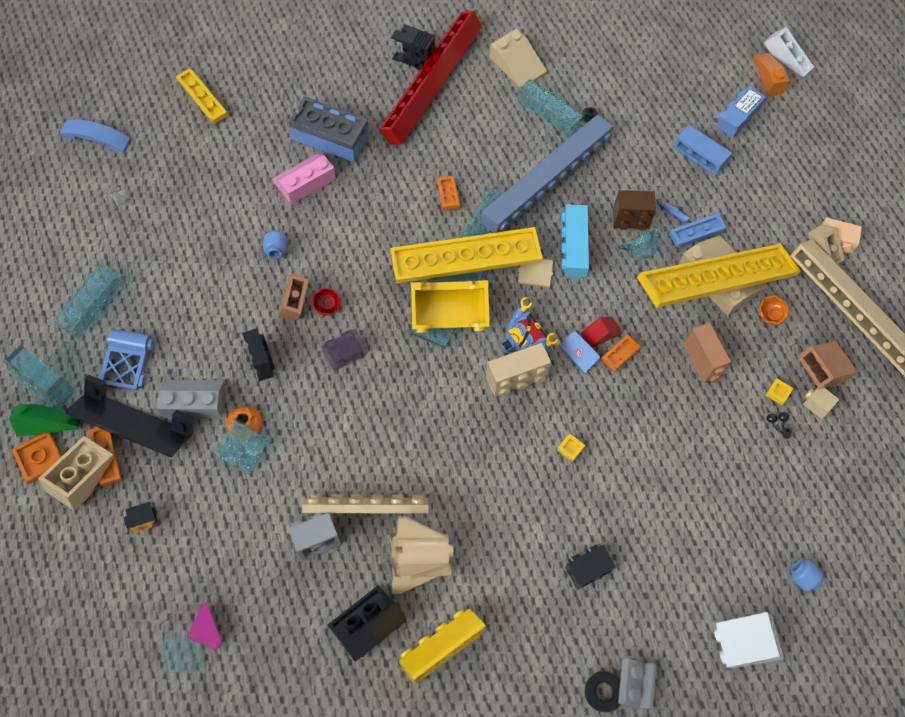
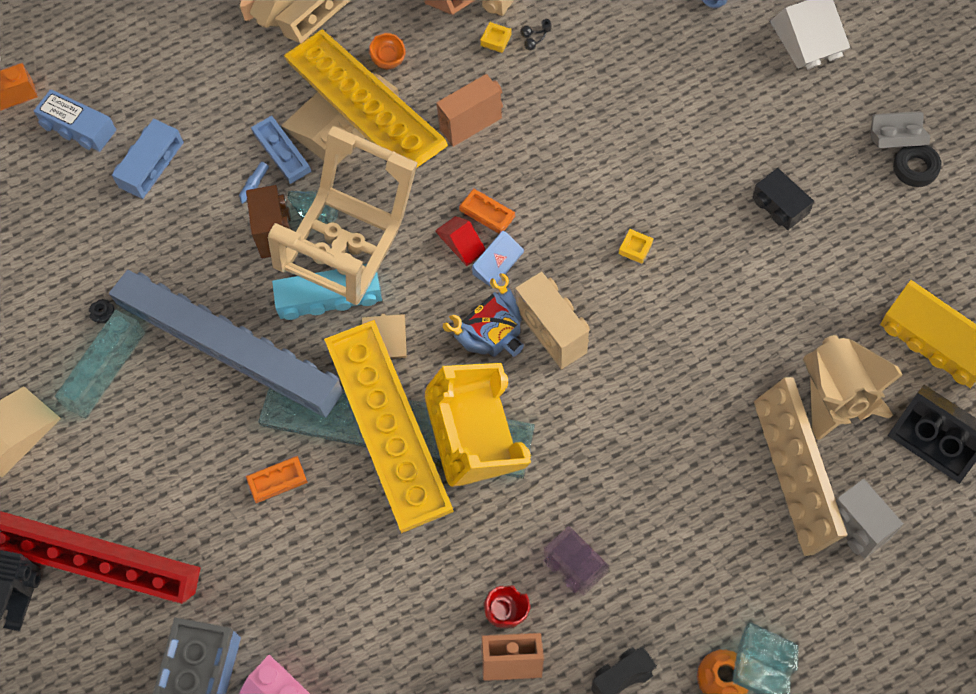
camera: 95 degrees left, 0 degrees up
(622, 276) = (357, 275): none -> tan windscreen

